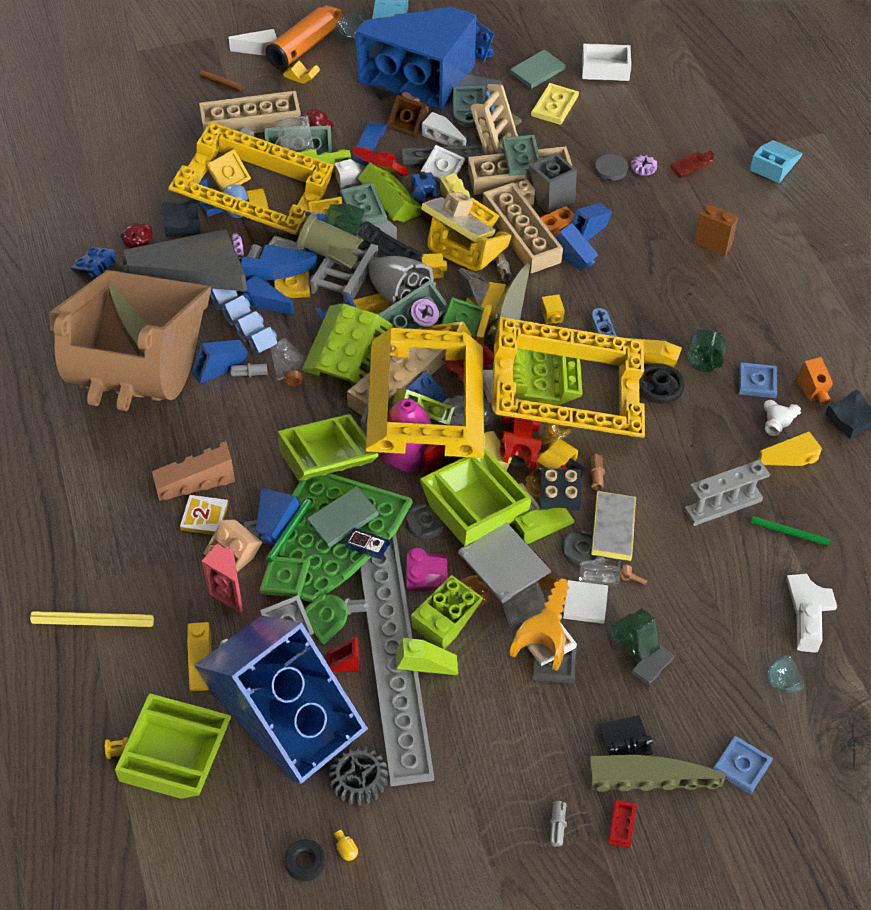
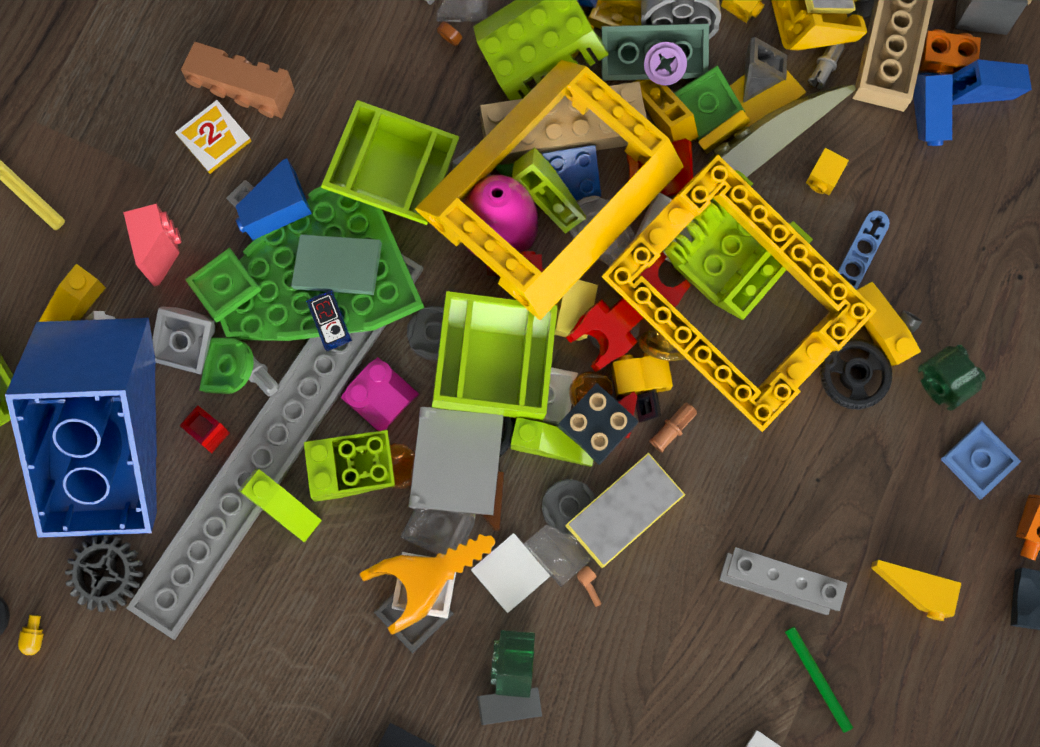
camera: 40 degrees right, 25 degrees up
(238, 539) = (205, 201): light nougat slope -> none
(288, 530) = (271, 232): green bar -> none
(779, 416) = (953, 530): white animal -> none

